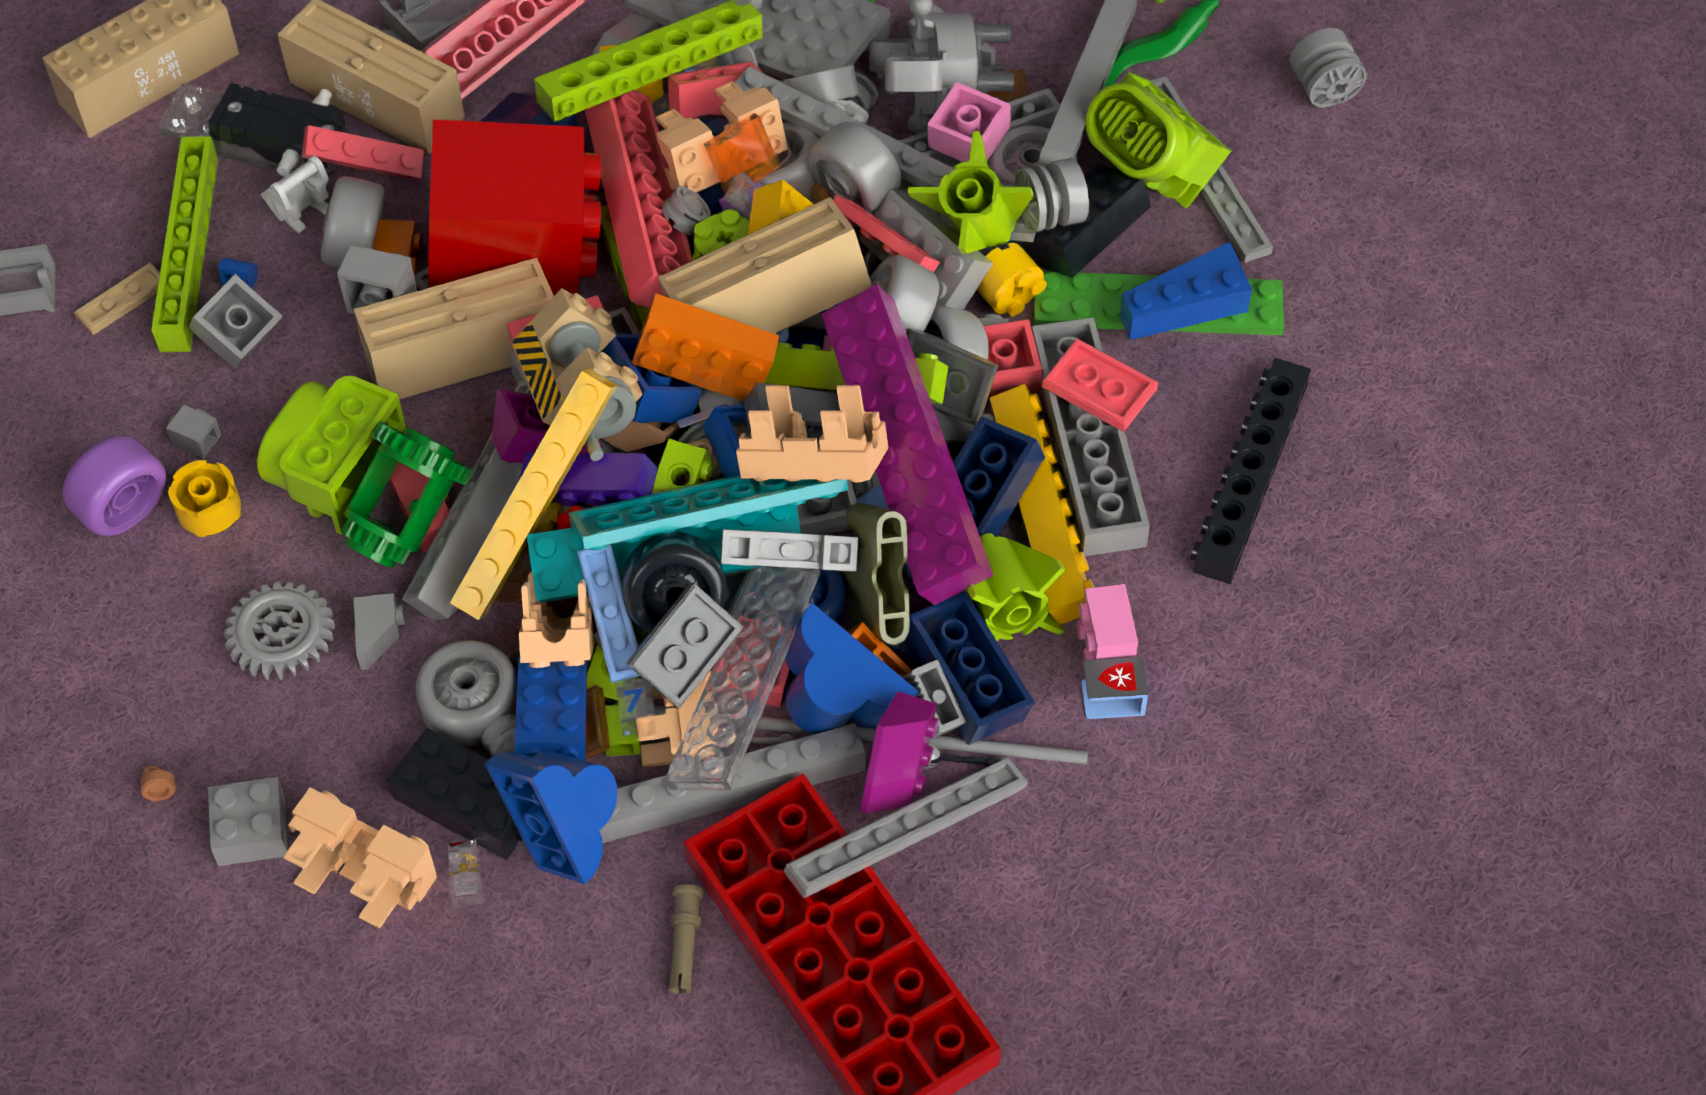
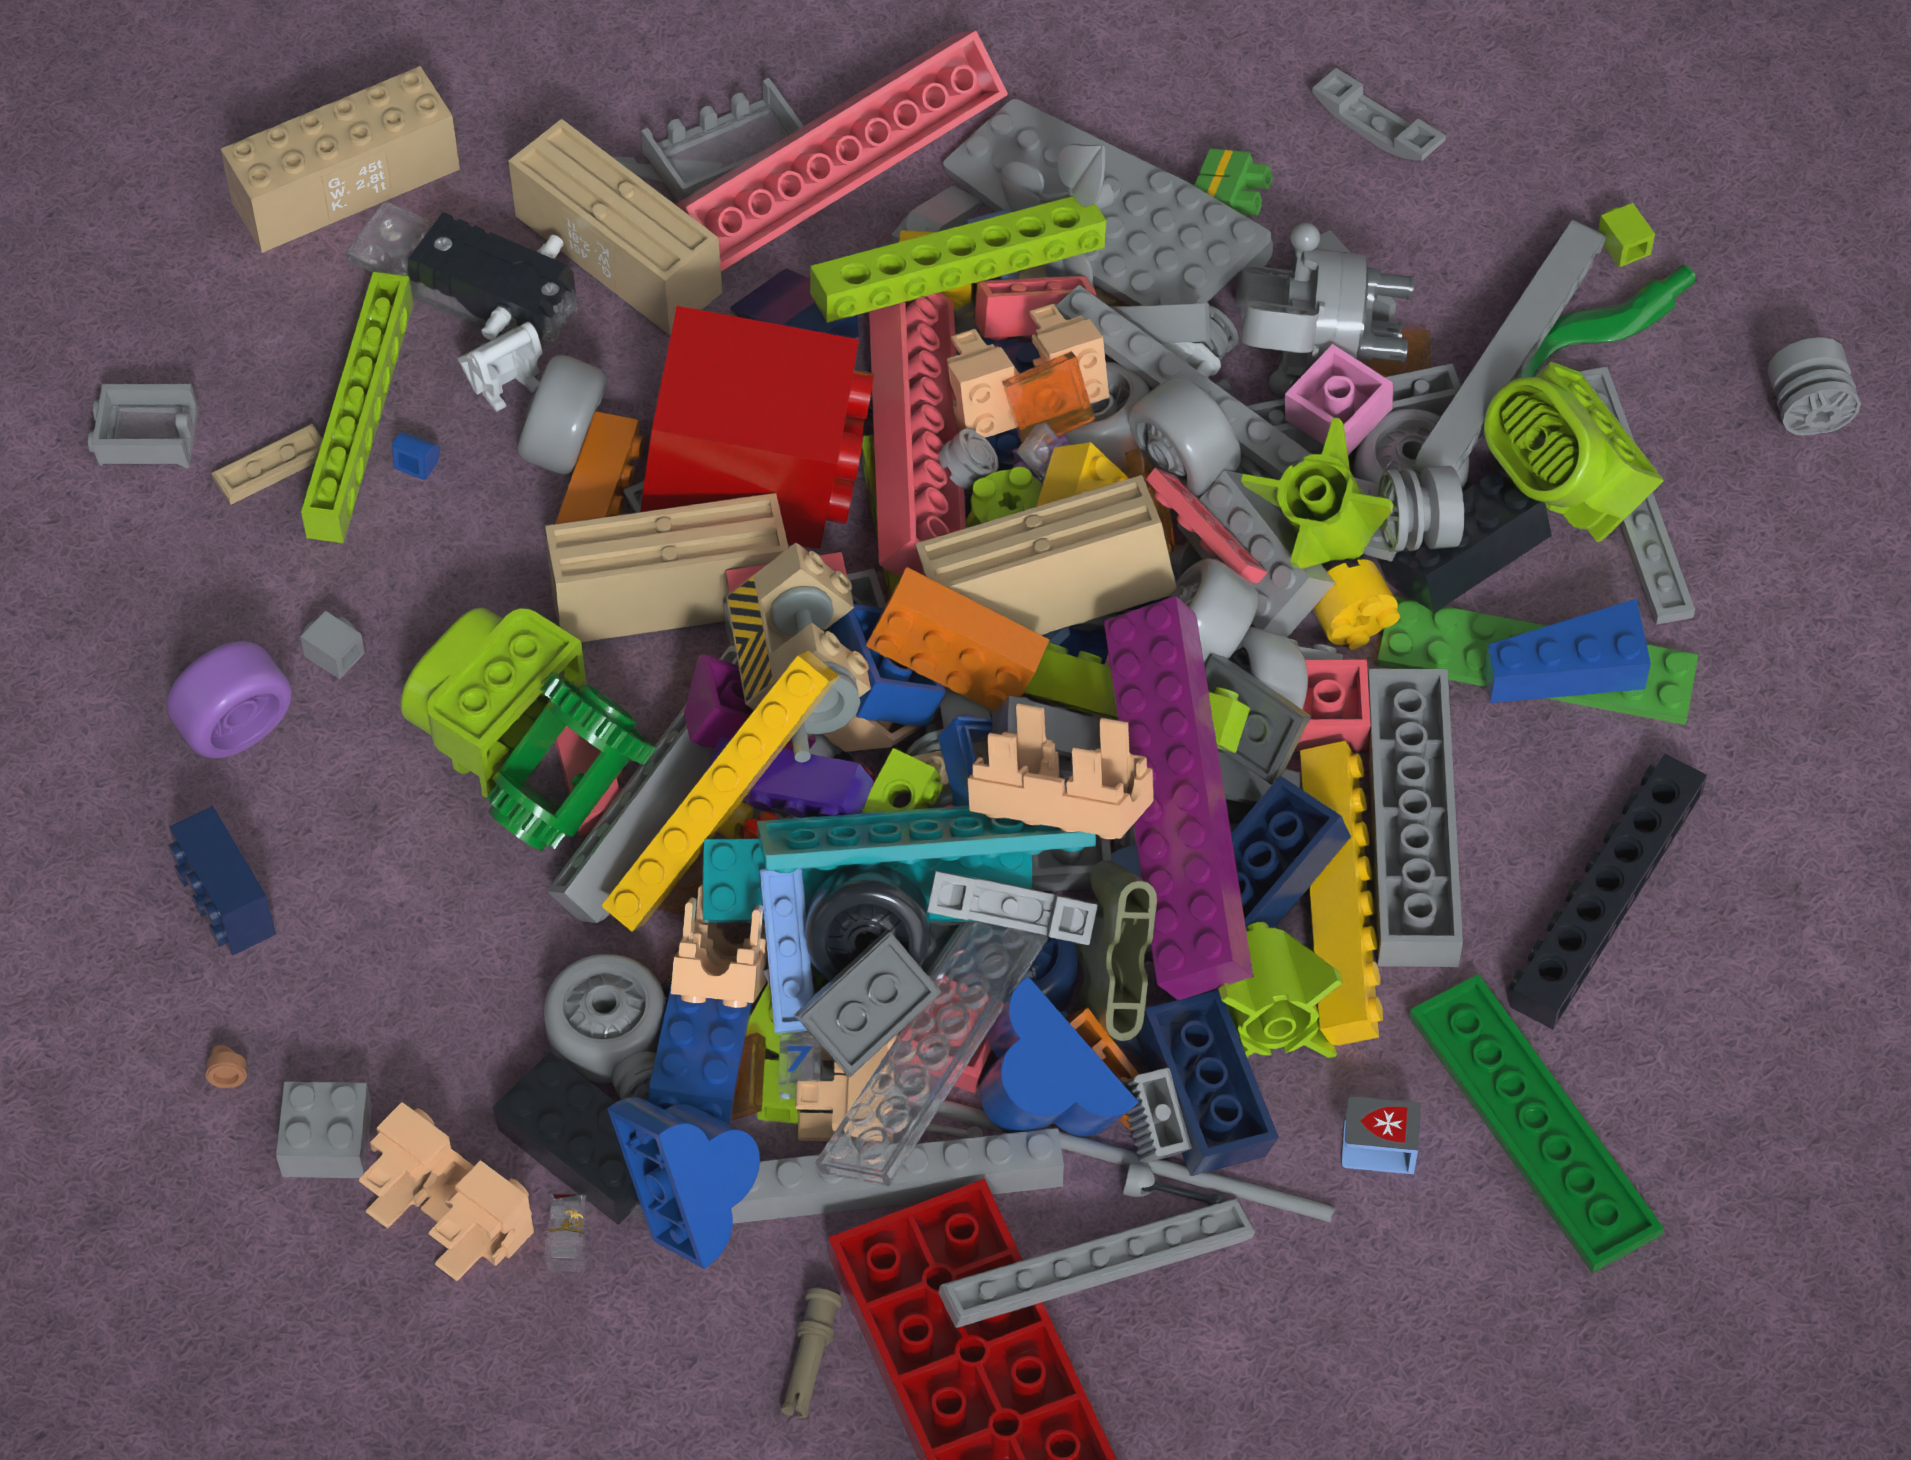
camera: 10 degrees right, 0 degrees up
(129, 632) = (220, 881): none -> dark blue brick
(205, 498) = (333, 730): yellow brick -> none
(235, 321) = (402, 516): light grey brick -> none
(284, 639) = (404, 920): light grey gear -> none
(362, 153) = (589, 324): coral plate -> none
(374, 276) = (576, 489): light grey brick -> none
(376, 626) = (510, 919): light grey slope -> none
(697, 417) = (939, 723): white sticker -> none
(900, 754) = (1102, 1174): magenta slope -> none
(1100, 384) = (1437, 756): coral tile -> none
(1107, 624) = (1385, 1055): bright pink brick -> none
(1235, 660) = (1536, 1123): none -> green plate

